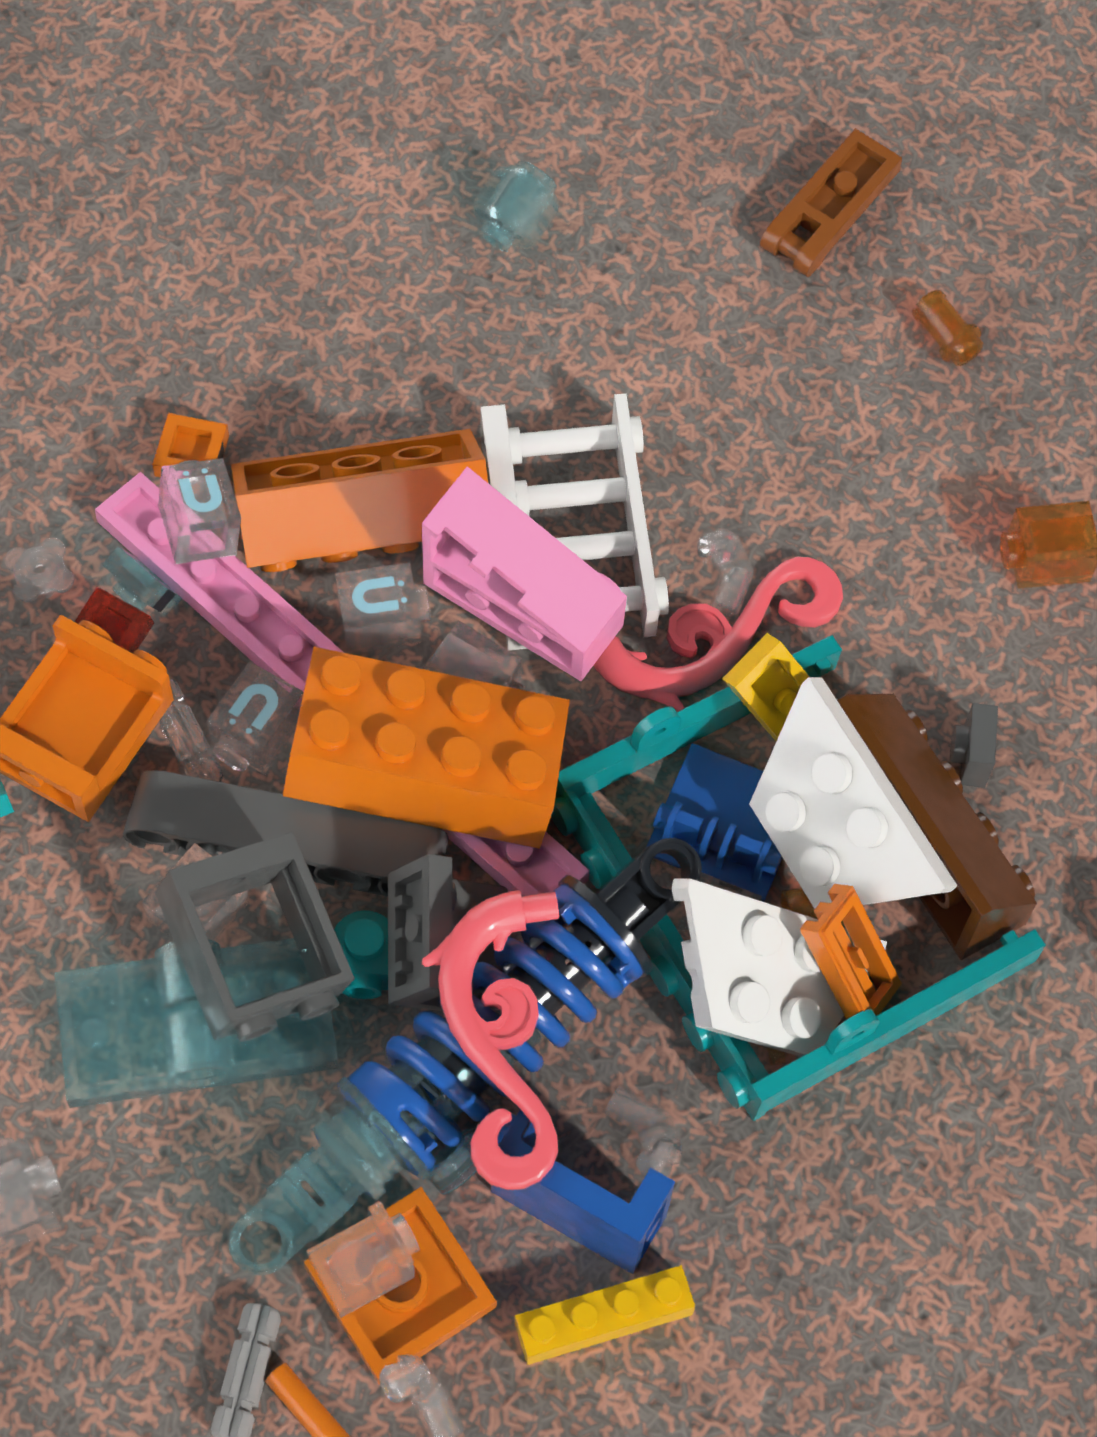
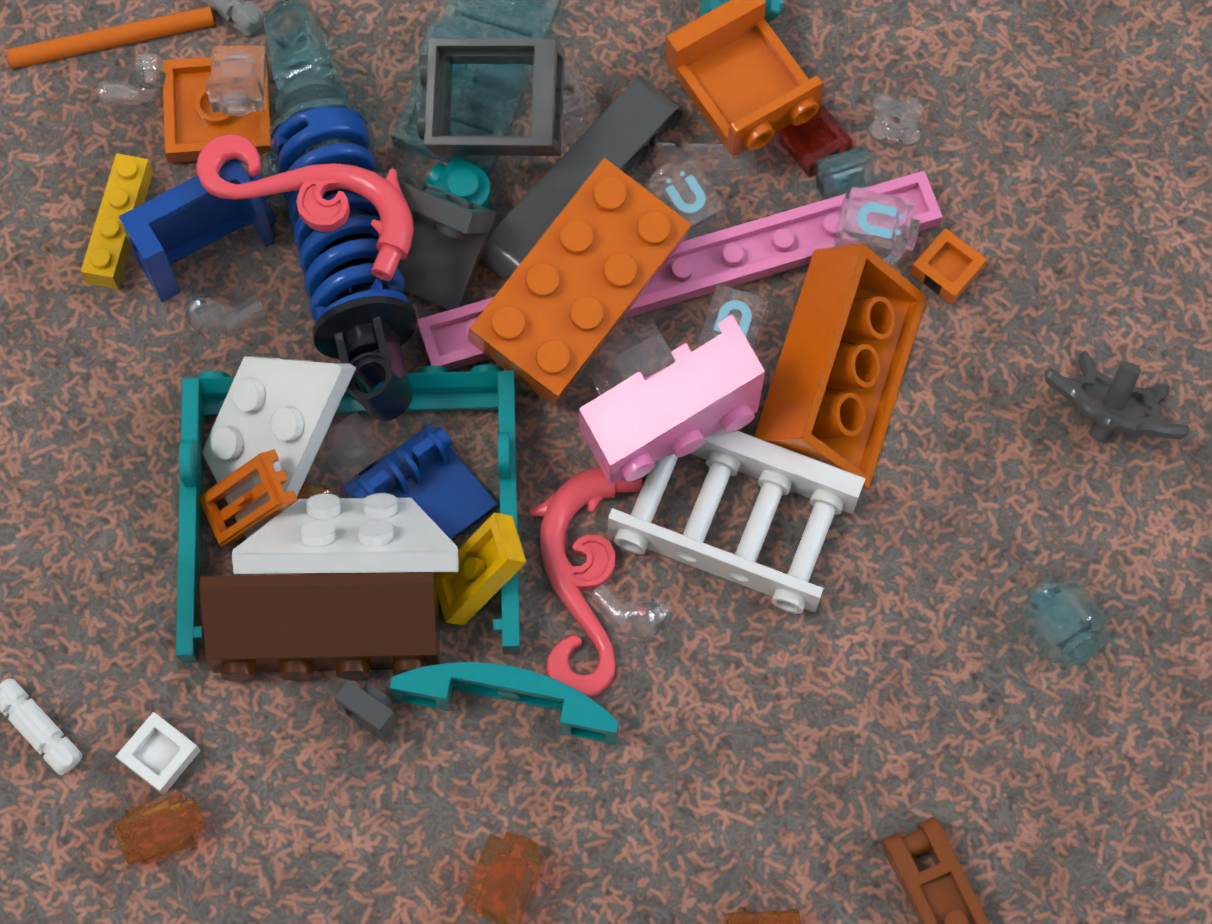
camera: 120 degrees right, 5 degrees up
(267, 242) = (1116, 401): none -> dark grey piece
(871, 635) = (435, 684): none -> teal slope

